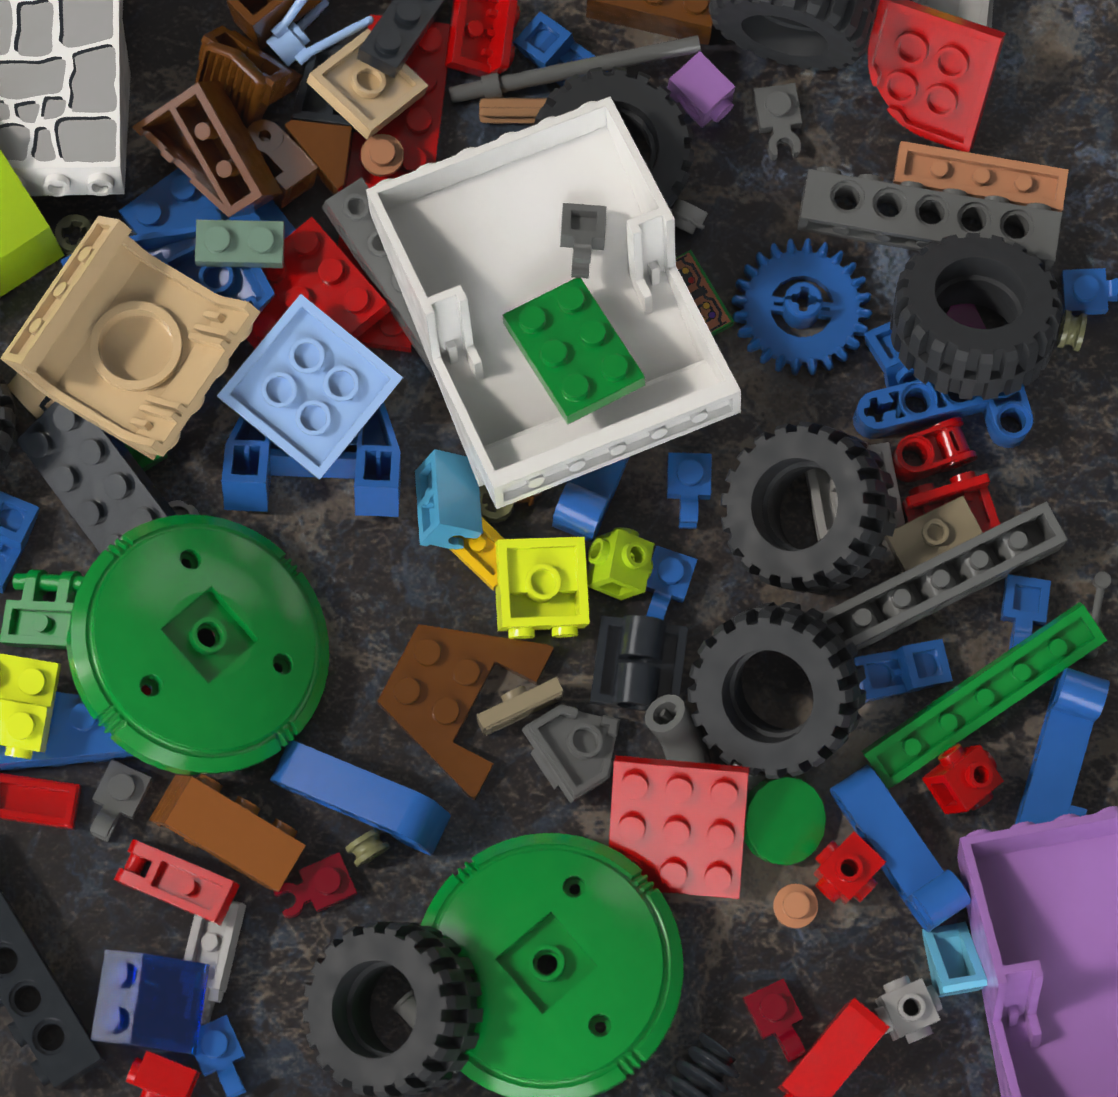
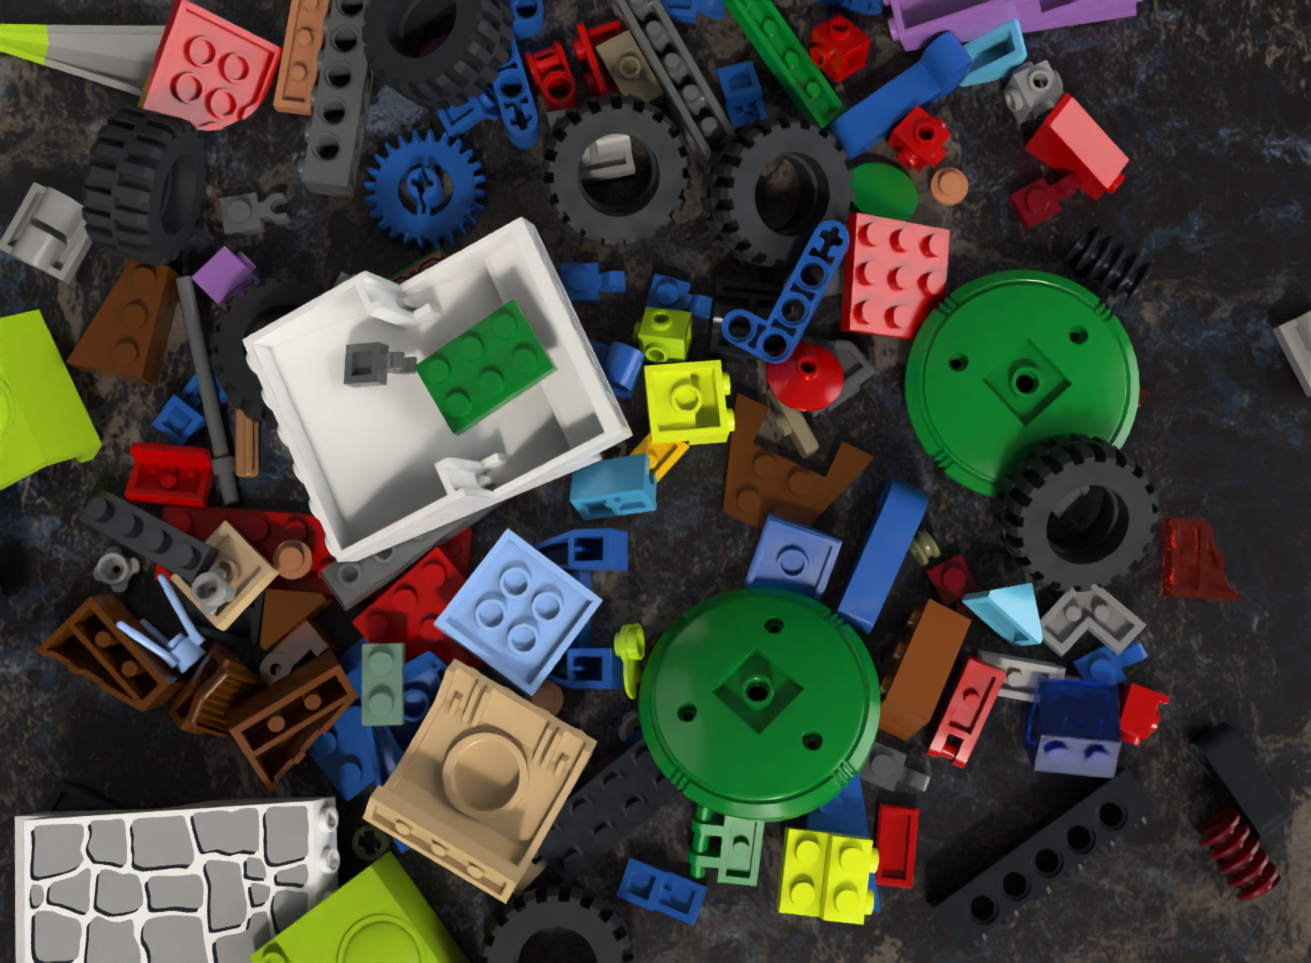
camera: 90 degrees left, 5 degrees up
(216, 421) = (548, 697): none -> nougat plate
(266, 509) = (630, 646): none -> lime plate
(282, 1033) = (1089, 611): none -> light grey plate
(288, 939) = (1009, 612): none -> medium azure slope
(349, 59) = (203, 587): none -> light grey plate
(359, 698) = (793, 558): none -> blue plate
(547, 717) = (803, 389): none -> red dish
(659, 700) = (794, 290): none -> blue beam

